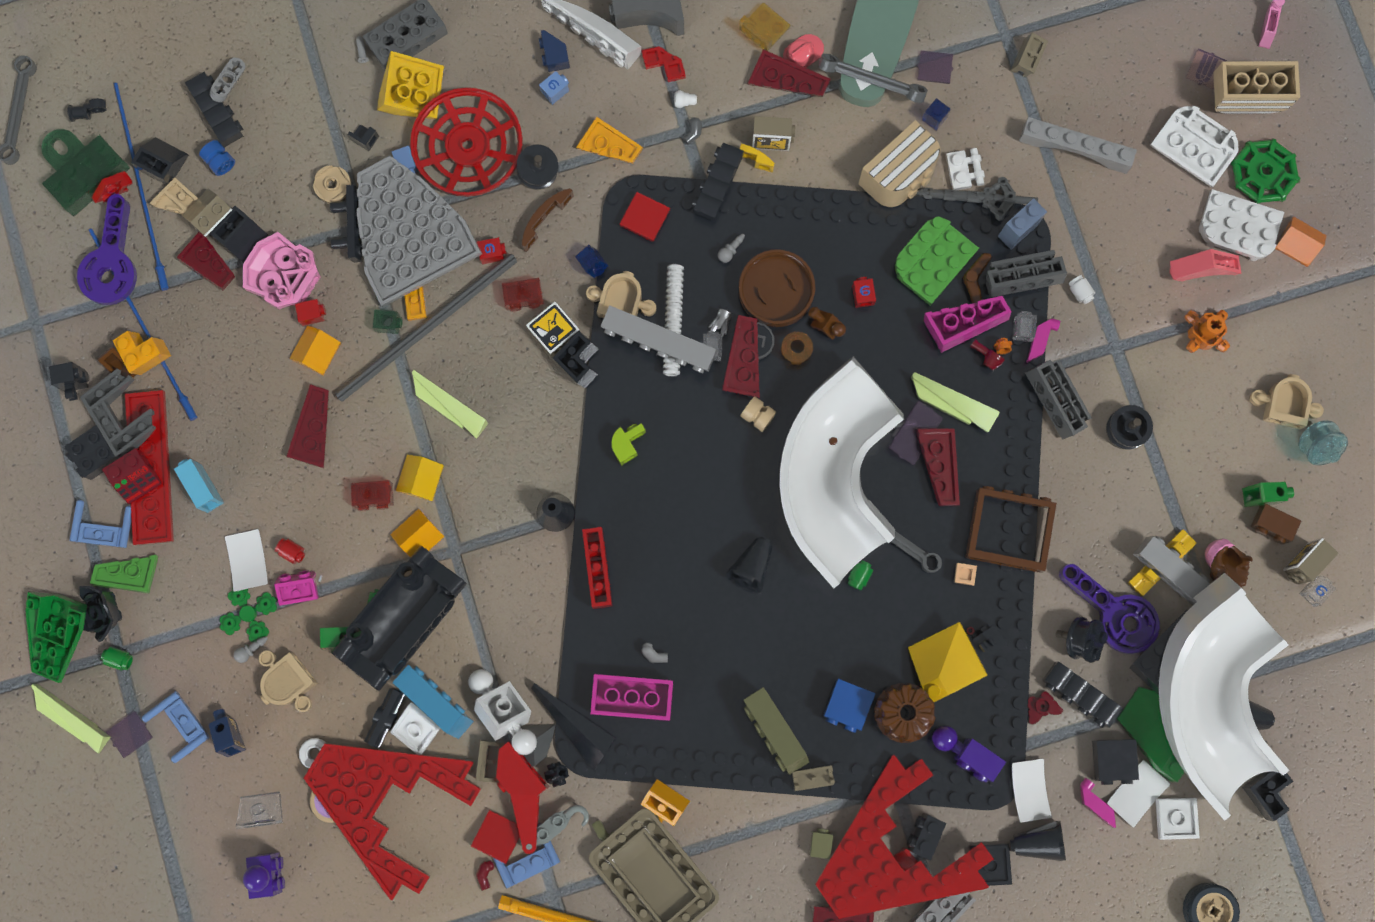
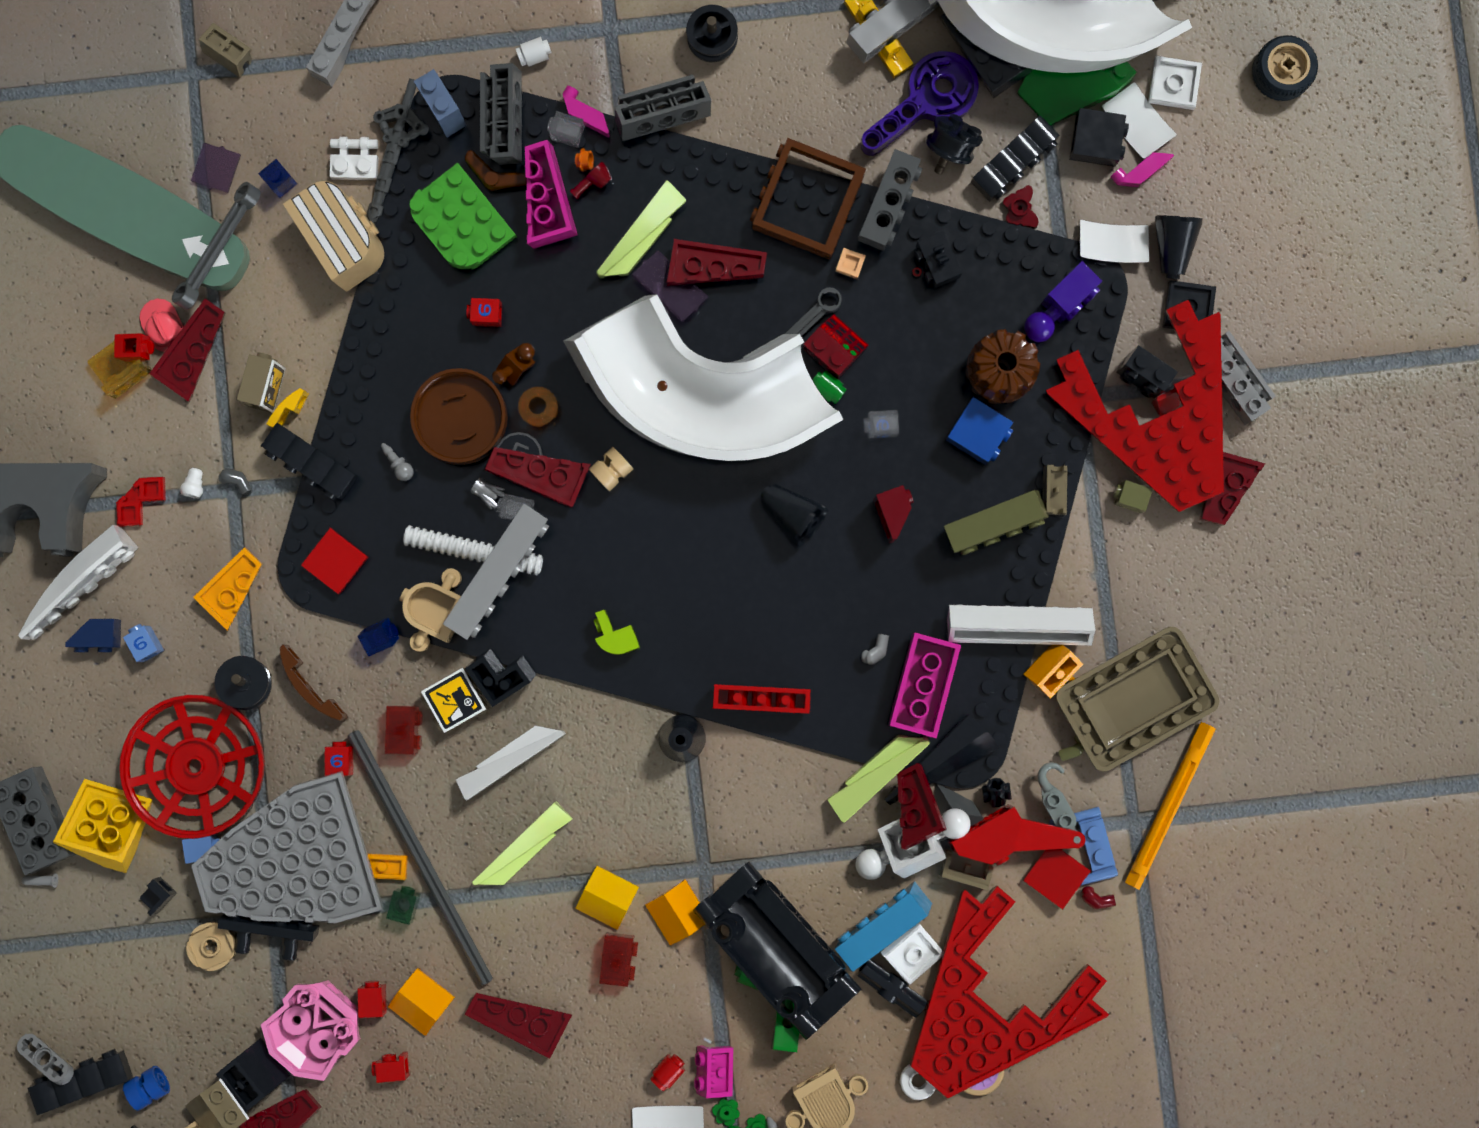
camera: 80 degrees left, 5 degrees up
(260, 337) = (391, 1068): none -> red brick
(514, 379) = (507, 760): none -> white wedge
(531, 710) = (919, 809): none -> dark red wing
(553, 672) = (876, 774): none -> yellowish green wedge
(696, 768) = (1020, 625): none -> white brick
(769, 645) = (893, 510): none -> dark red slope
(780, 32) = (133, 347): none -> red brick
(838, 624) = (882, 424): none -> clear brick
(895, 574) = (835, 346): none -> dark red slope
(946, 662) = (951, 306): yellow slope -> none
(1053, 597) = (900, 166): none -> dark grey brick

